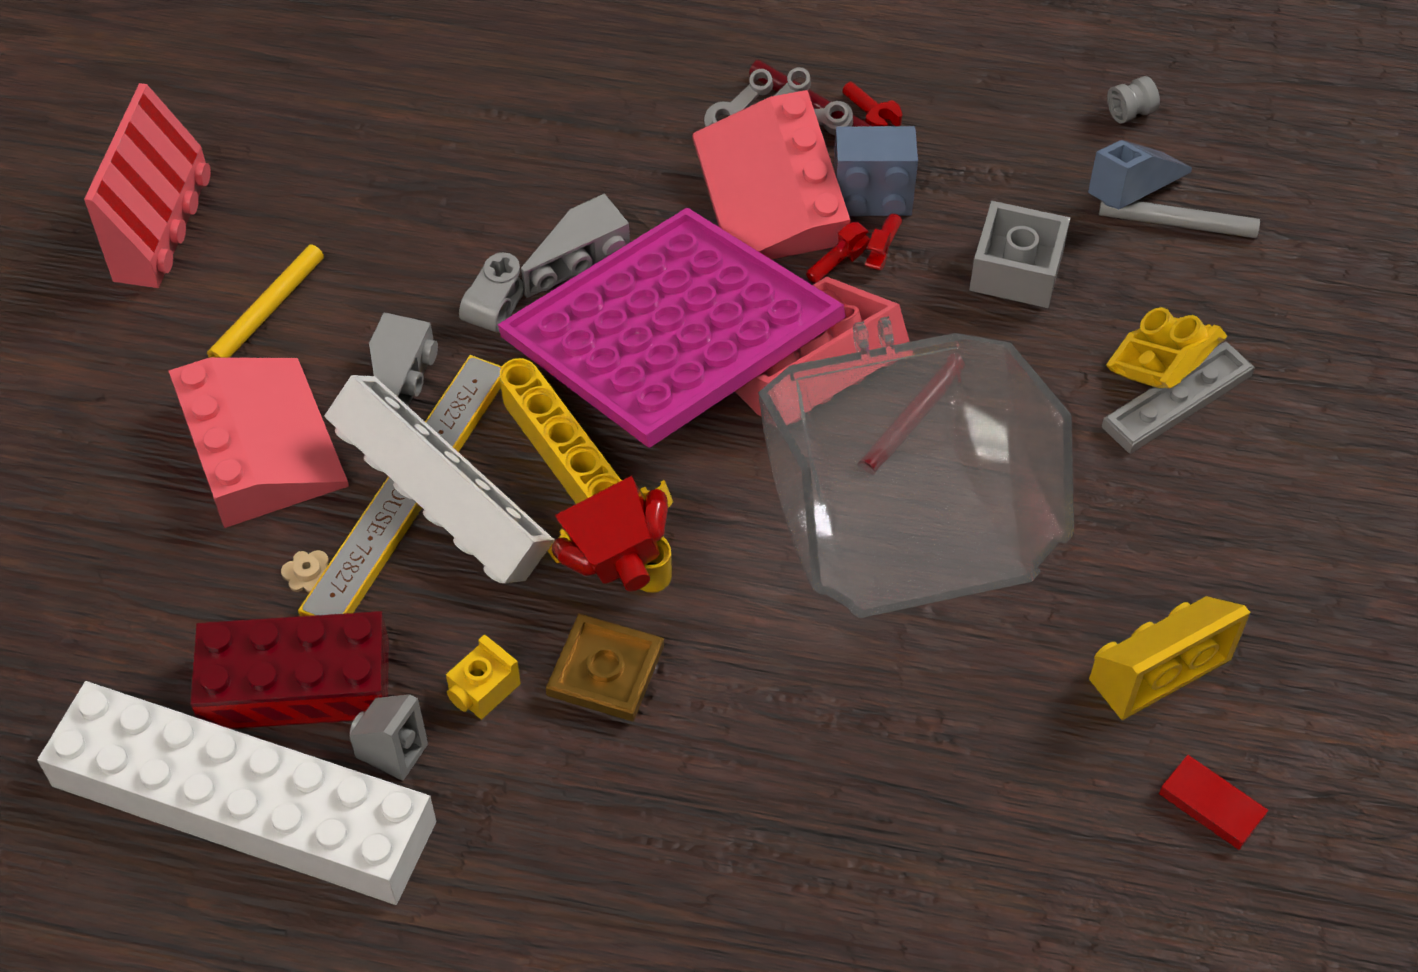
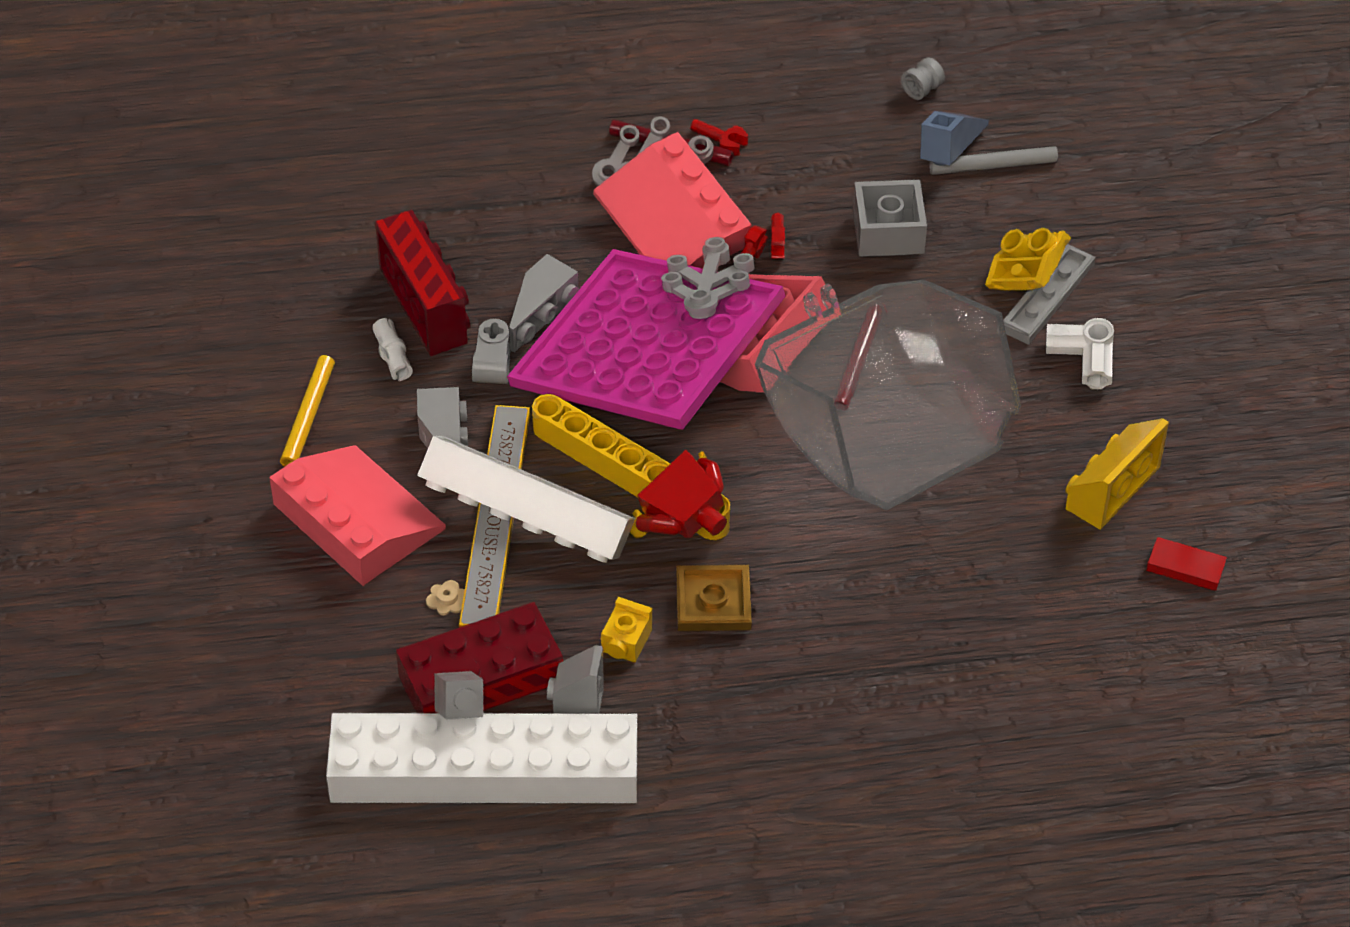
camera: 20 degrees left, 5 degrees down
(146, 191) = (177, 350): coral slope -> none
(227, 706) = (458, 695): none -> light grey brick
(391, 258) = (392, 349): none -> white pin
(453, 190) = (422, 282): none -> dark red brick
(742, 297) = (703, 301): none -> light grey plant
(876, 169) = (755, 178): sand blue brick -> none
(1193, 468) = (1092, 341): none -> white piece

